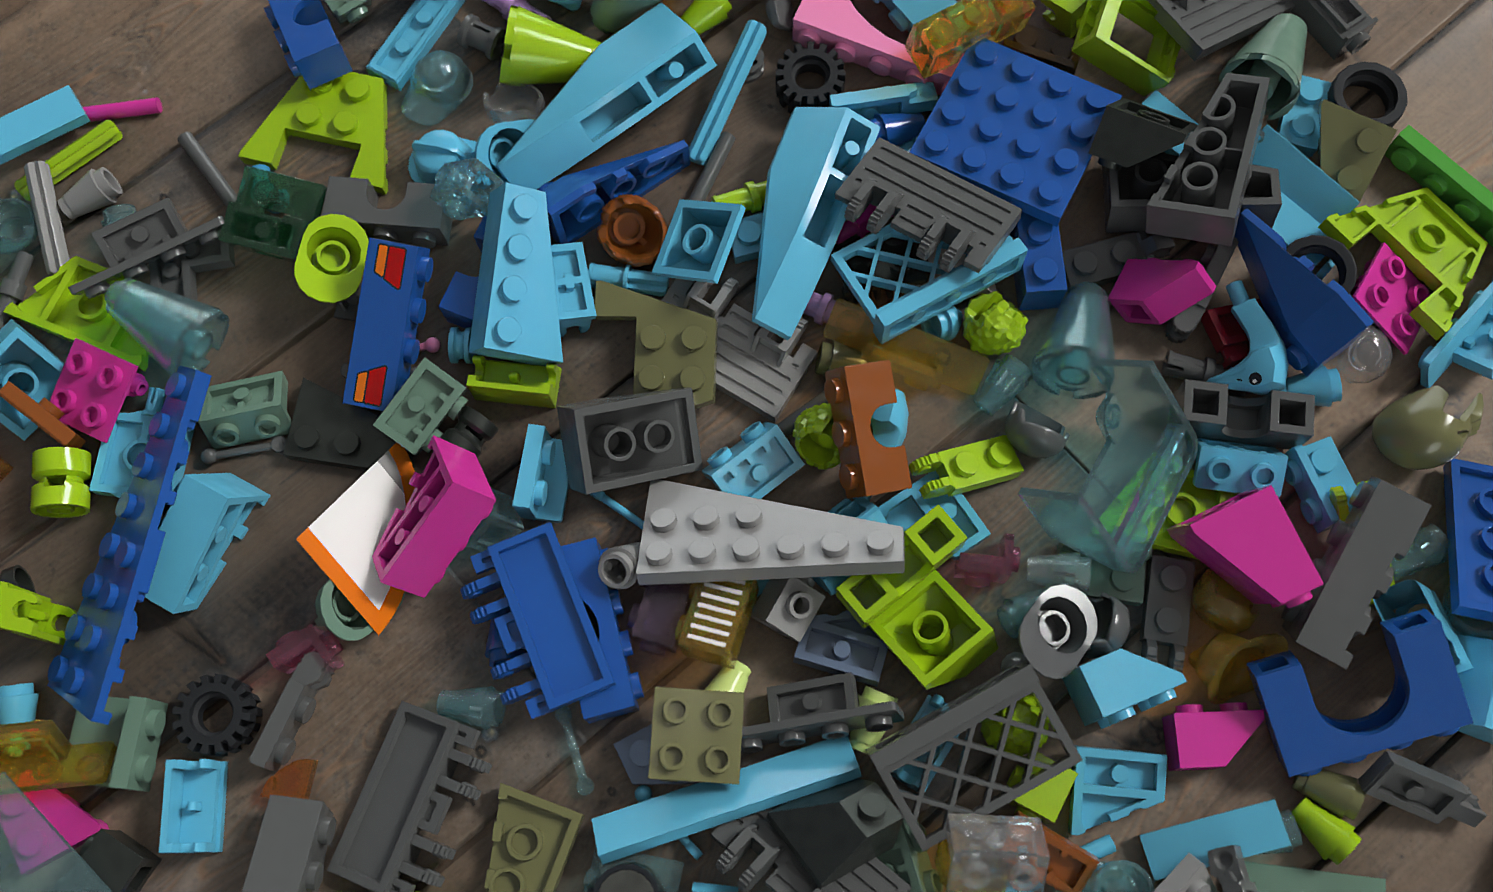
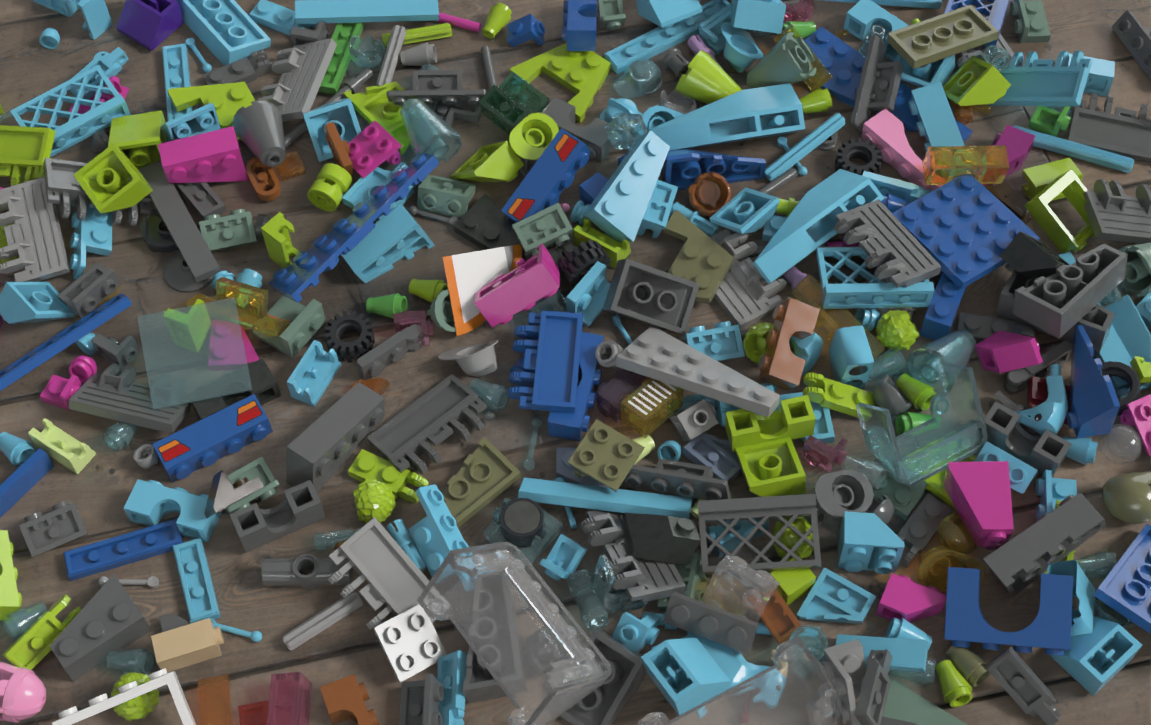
camera: 25 degrees right, 15 degrees down
(178, 82) = (497, 18): none -> lime cone
(230, 80) = (524, 30): none -> blue bracket
(251, 635) = (387, 305): none -> bright green cone
(285, 330) = (490, 164): none -> lime slope
(297, 579) = (427, 289): none -> lime cone
(417, 660) = (474, 359): none -> light grey piece
(505, 431) = (581, 260): none -> black tyre
(688, 95) = (782, 142): none -> medium azure hinge
(776, 668) = (666, 450): none -> medium azure hinge
(956, 401) = (850, 348): none -> medium azure piece
(1063, 405) = (916, 391): none -> lime cone
(1079, 457) = (910, 420): none -> bright green cone
(1231, 789) = (906, 630): none -> medium azure cone

